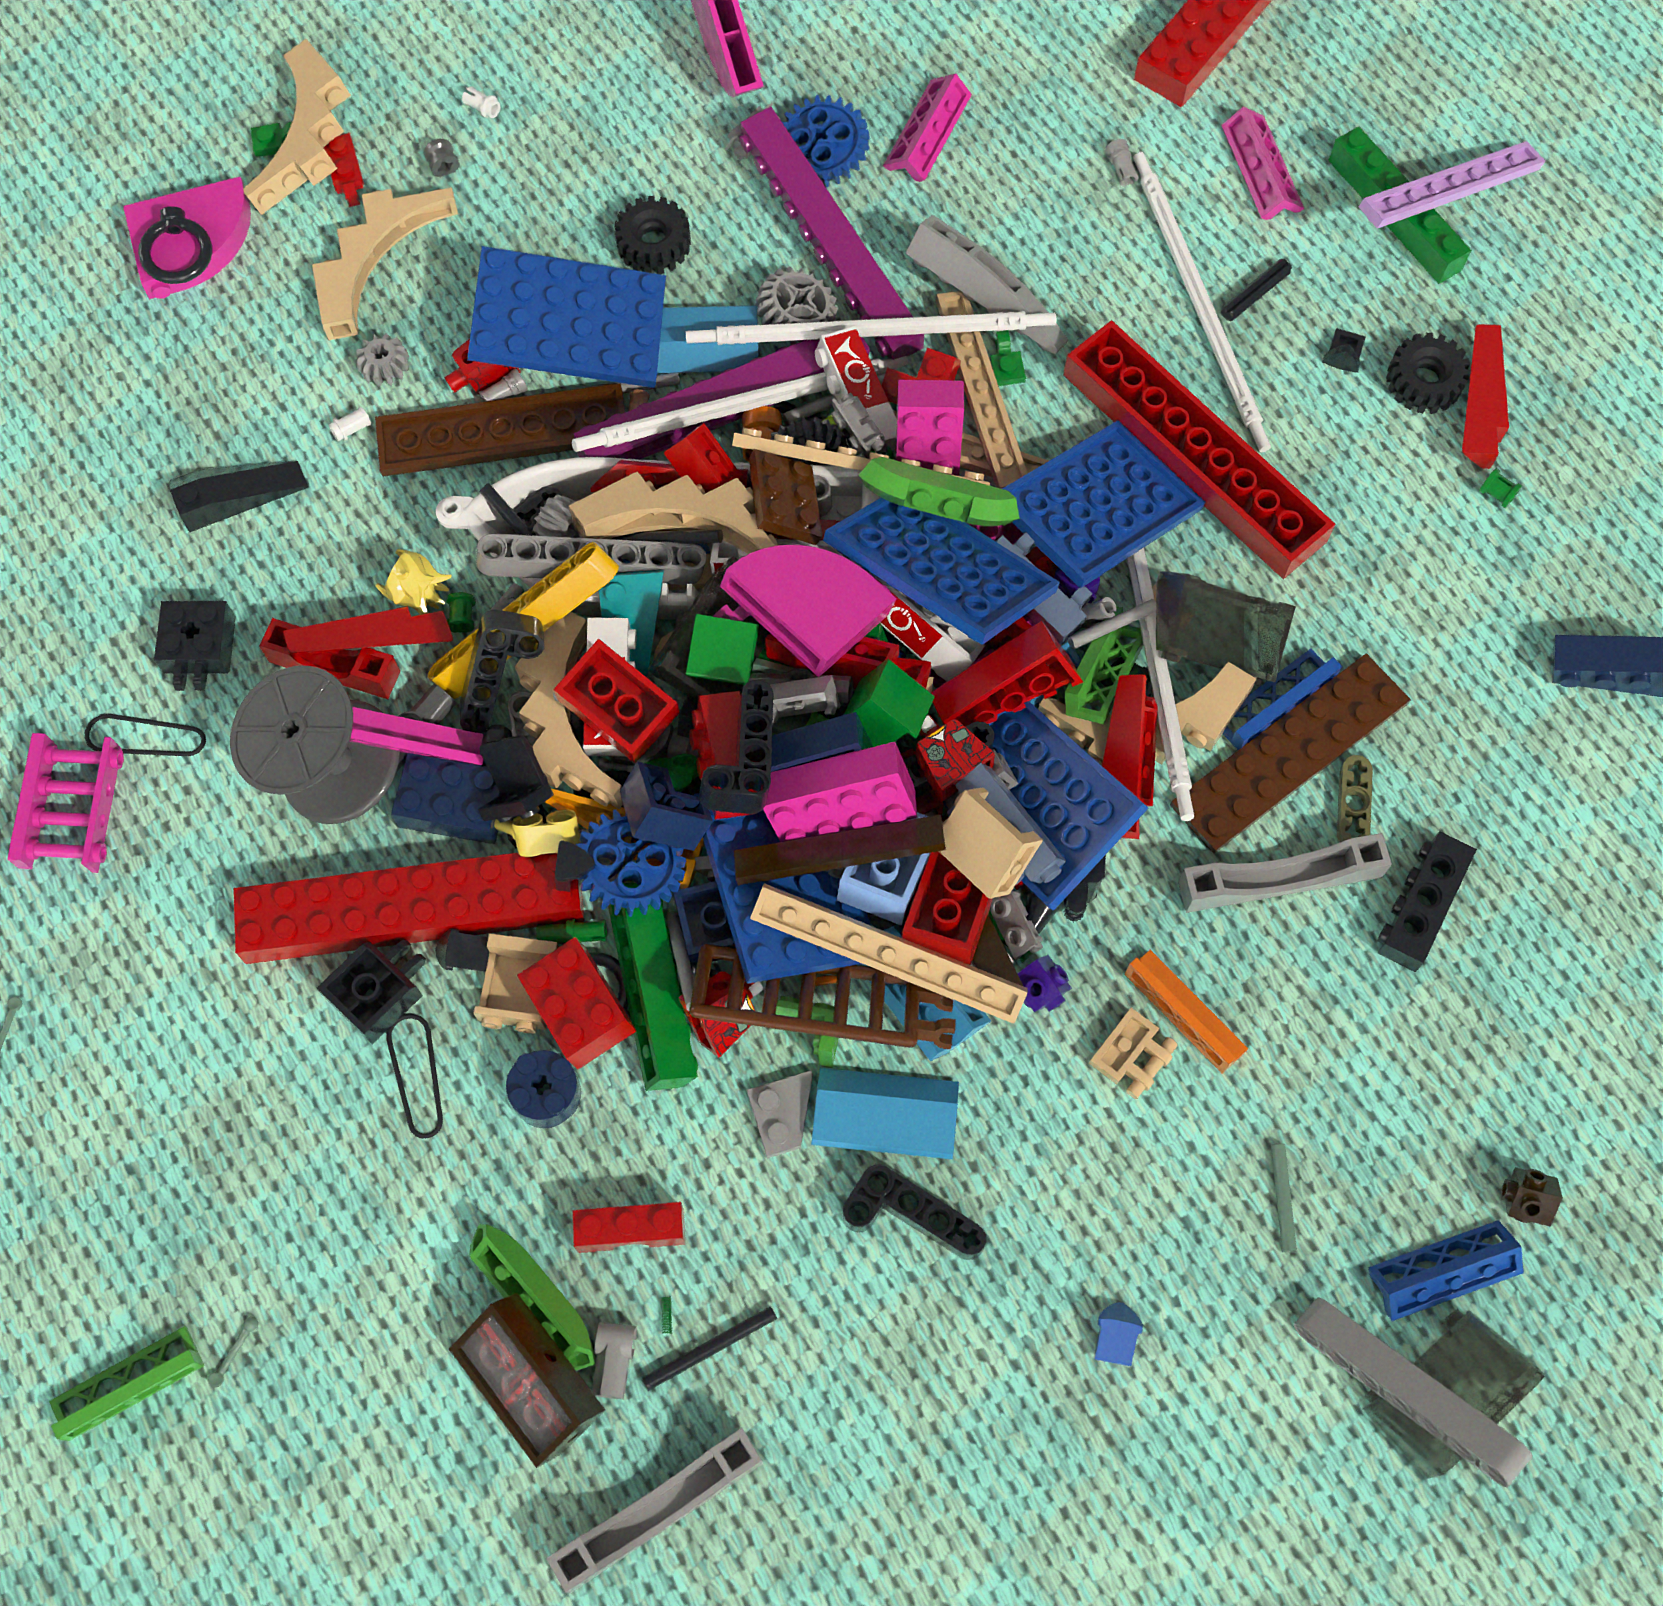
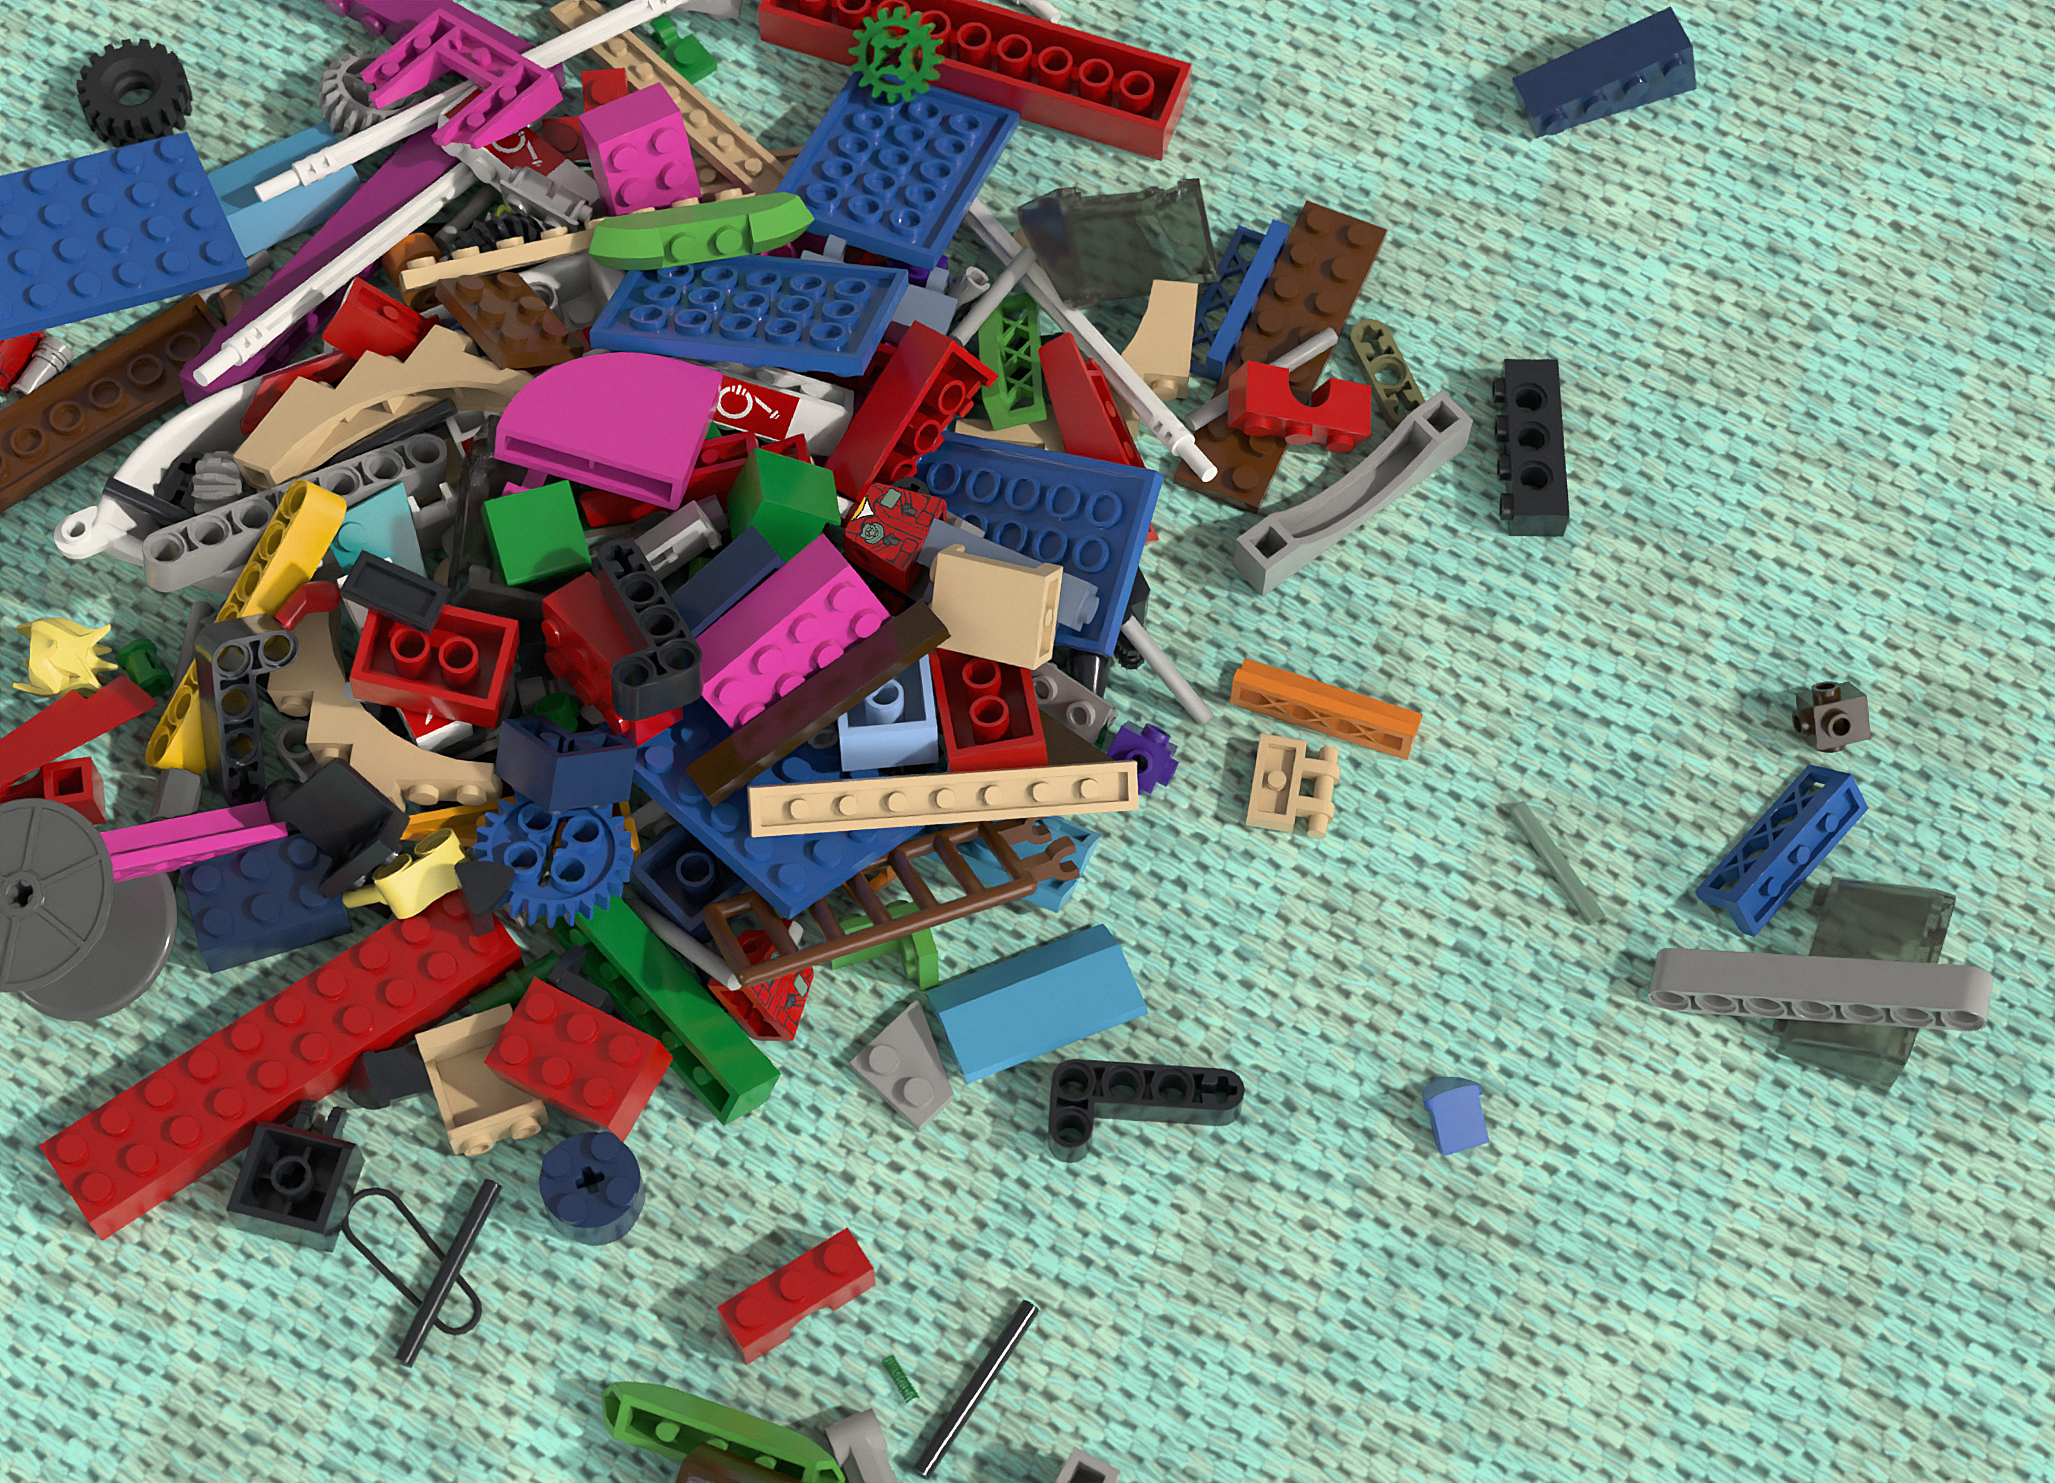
camera: 30 degrees left, 5 degrees down
(431, 1095) = (447, 1273): none -> black bar
(566, 620) = (306, 599): none -> red arm
(596, 946) = (566, 979): none -> black tile
(609, 647) = (395, 592): none -> black tile
(850, 289) = (514, 85): none -> dark pink wedge
(1089, 933) = (1165, 670): none -> light grey bar
(1132, 415) = (884, 42): none -> green gear
(1254, 784) = (1264, 406): none -> red arch
(1265, 764) = (1290, 360): none -> light grey bar

